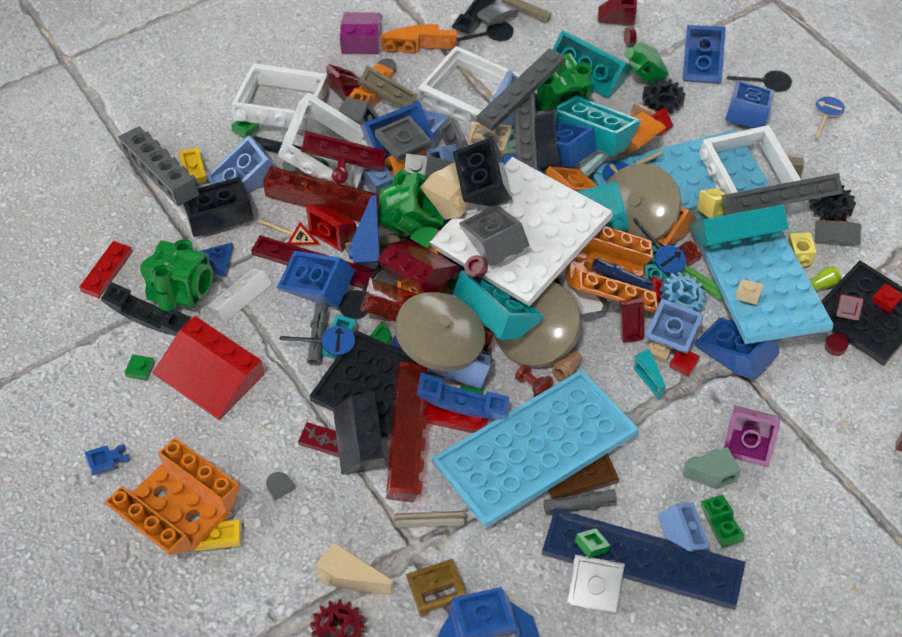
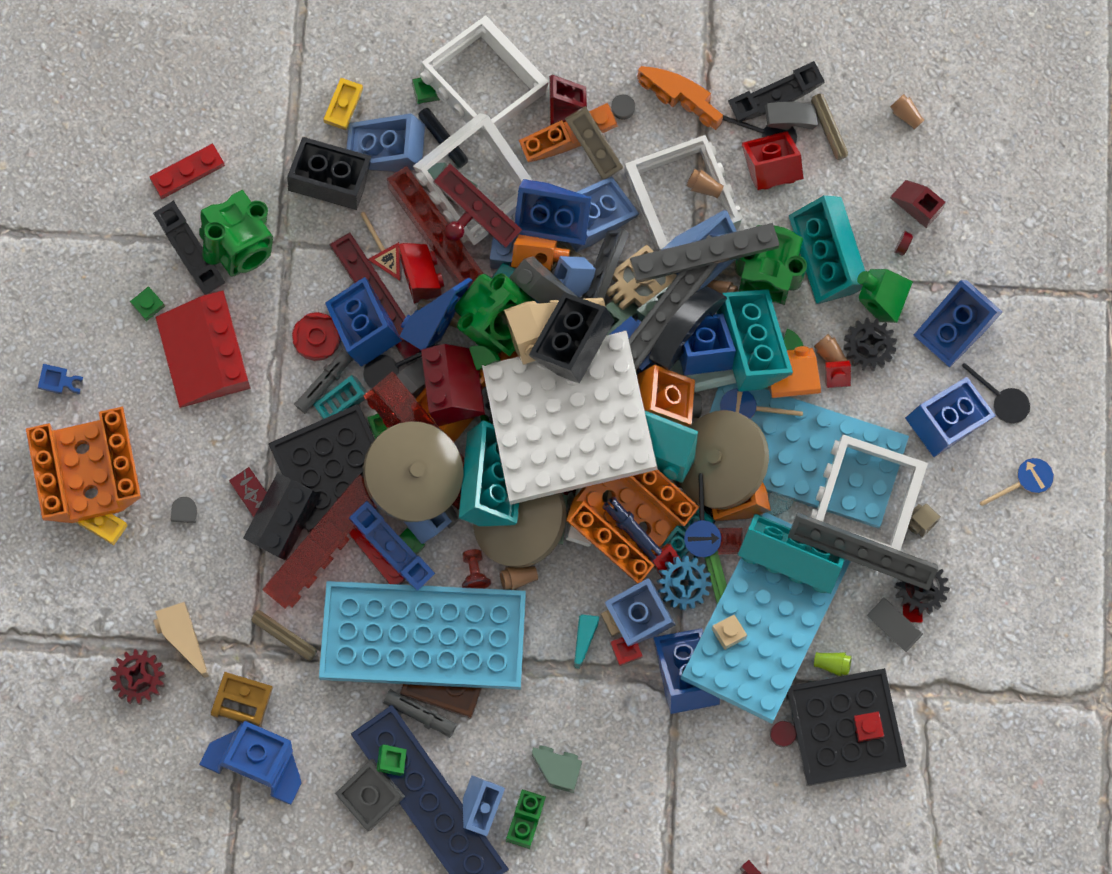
camera: 35 degrees right, 20 degrees up
(159, 165) = (306, 72): dark grey brick -> none
(219, 257) = (291, 232): blue tile -> none
(239, 294) = (287, 285): white slope -> none
(287, 311) = (316, 336): none -> red tile
(335, 340) = (331, 403): blue piece -> none
(358, 110) = (538, 159): dark grey slope -> none
(360, 33) = (632, 39): magenta slope -> none
(403, 138) = (543, 232): dark grey tile -> none
(476, 267) = (494, 430): tile -> none
(479, 67) = (704, 184): none -> medium nougat cone
(495, 234) = (532, 409): dark grey slope -> none
(510, 39) = (773, 160): none -> red slope
(632, 320) = (608, 577): dark red tile -> none
(711, 202) = (795, 502): light yellow brick -> none
(752, 435) = (619, 762): magenta slope -> none
(803, 247) = (842, 606): light yellow brick -> none
(849, 306) = (819, 710): plate -> none

